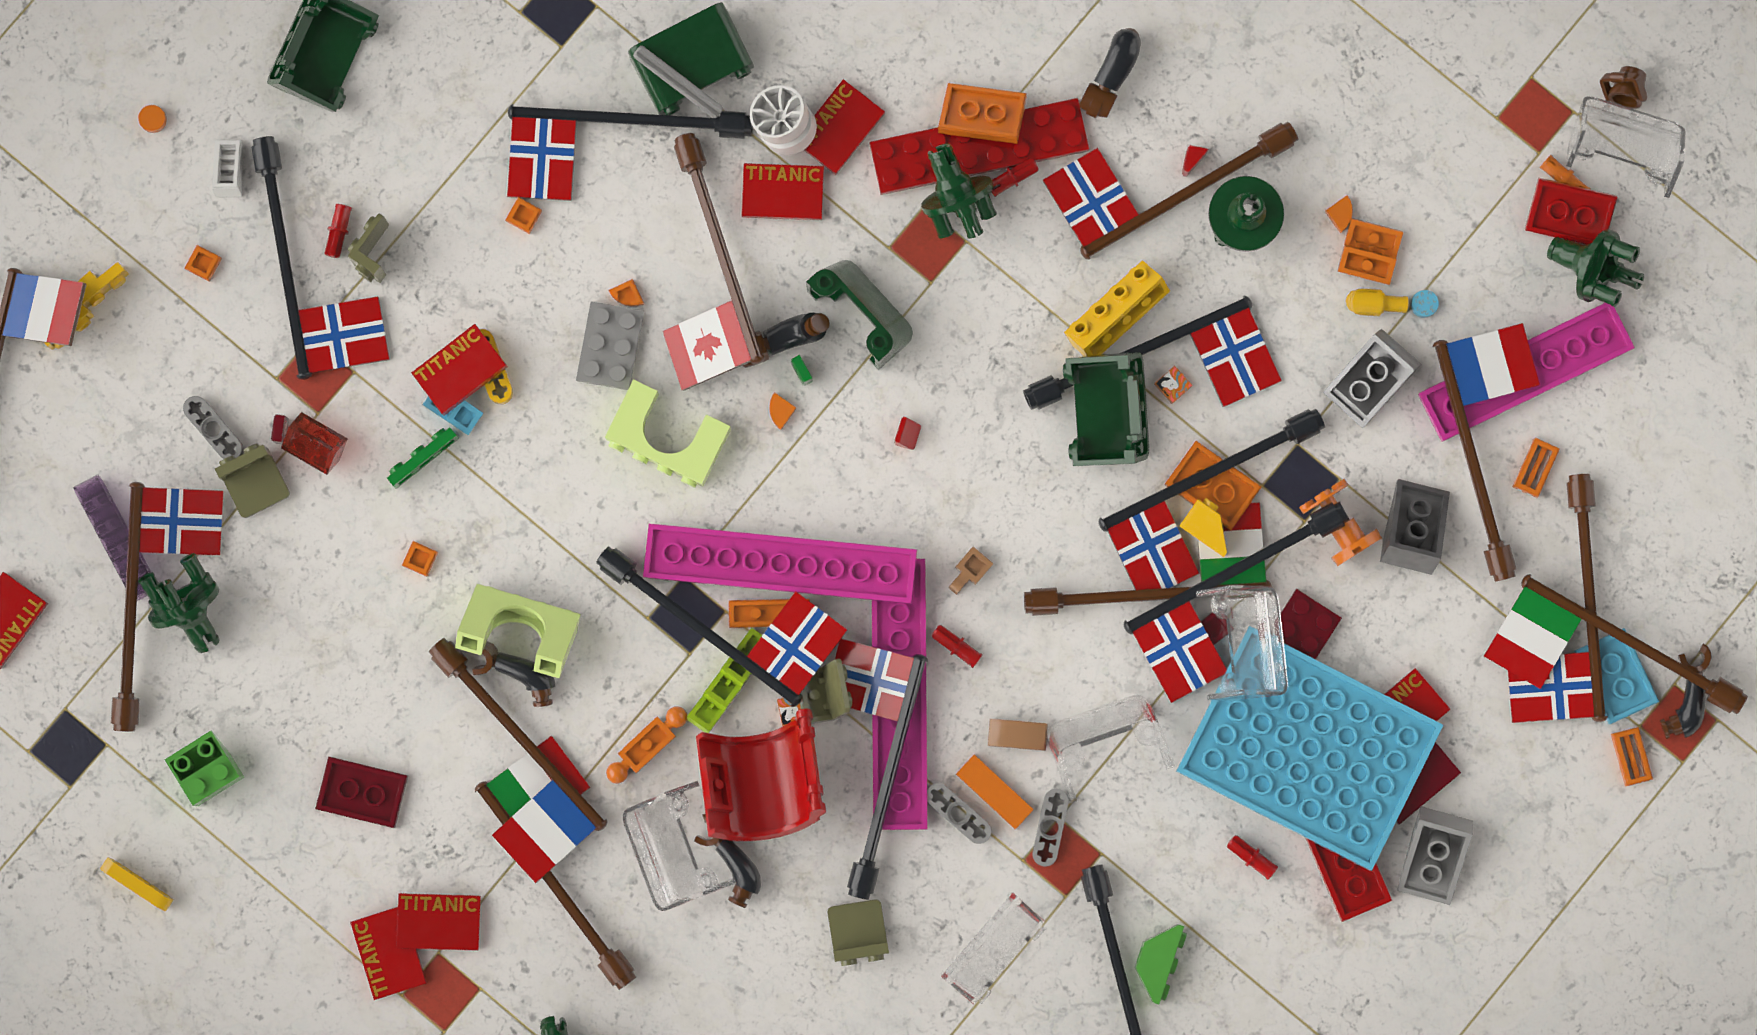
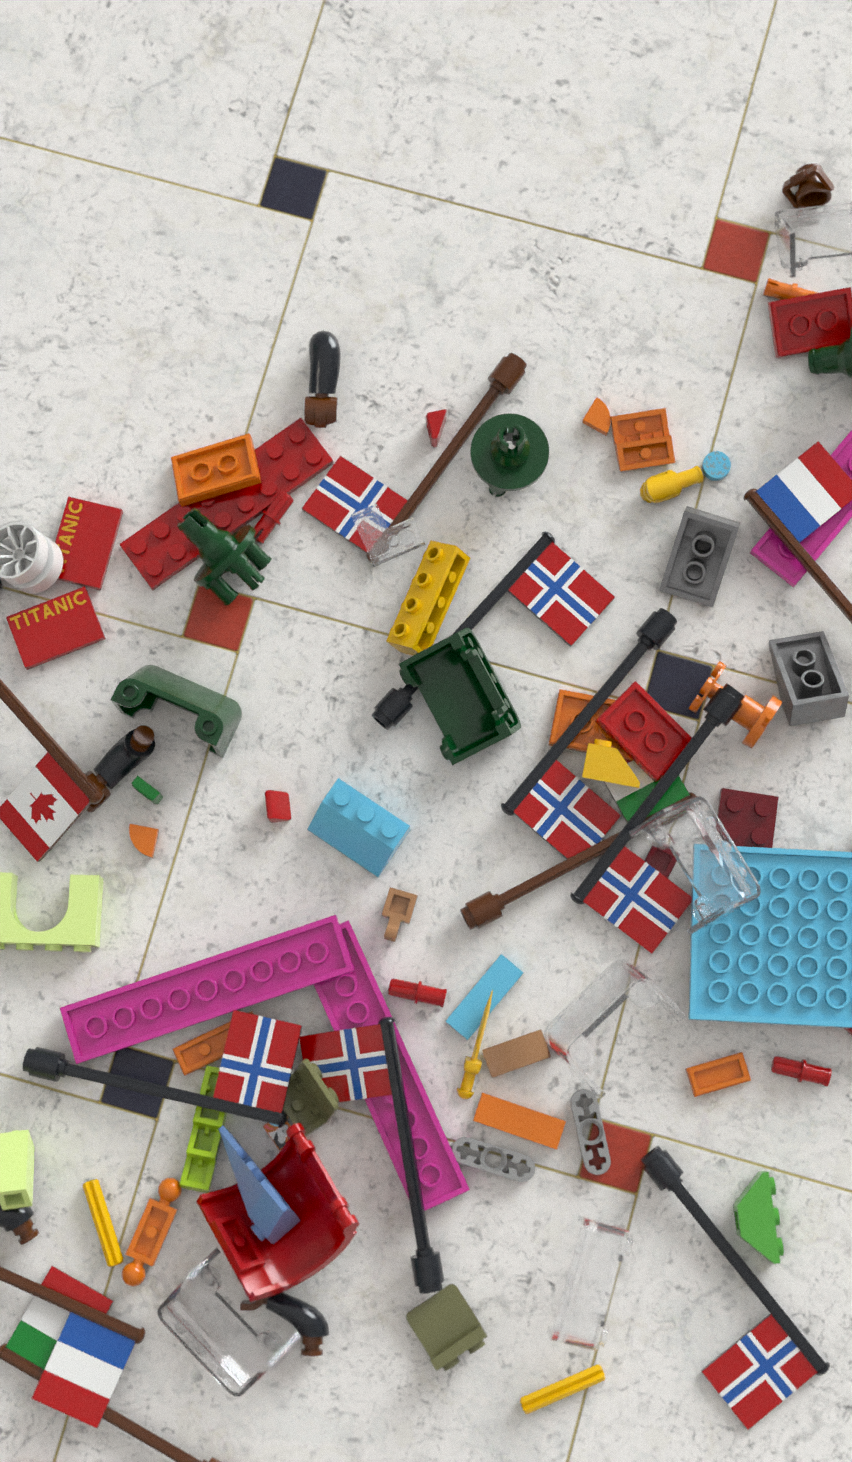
camera: 20 degrees left, 5 degrees down
(609, 718) = (103, 1222): none -> yellow axle
(752, 763) = (262, 1201): none -> medium blue wedge
(931, 1025) = (562, 1389): none -> yellow axle
(968, 483) = (358, 827): none -> medium azure slope
(975, 727) = (472, 1064): none -> yellow sword
(1011, 675) = (469, 1013): none -> medium azure tile
(1099, 244) = (383, 542): none -> clear plate
(1173, 384) = (513, 646): tile -> none
(1180, 828) = (718, 1074): none -> orange tile
(1251, 509) = (644, 731): none -> red tile

